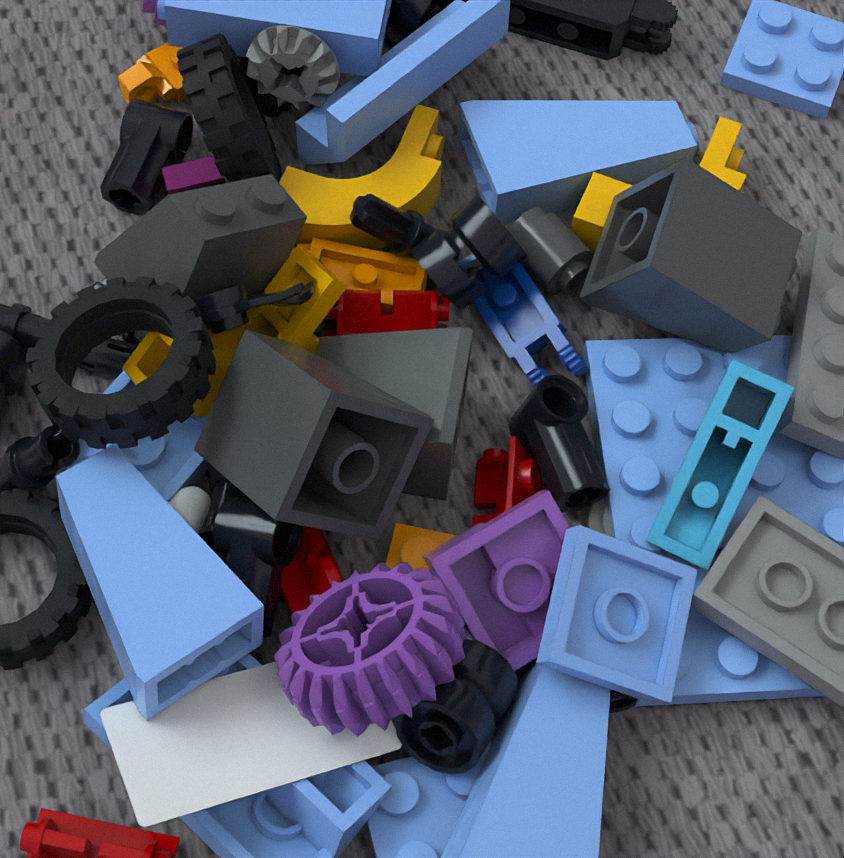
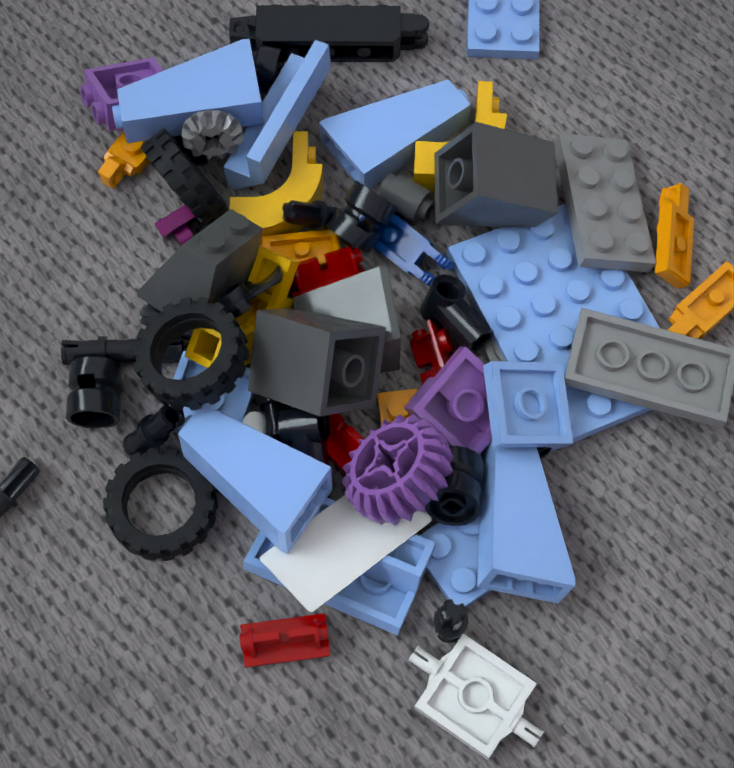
camera: 15 degrees left, 5 degrees up
(148, 142) = (135, 208): black piece -> none
(719, 463) = (552, 296): medium azure slope -> none

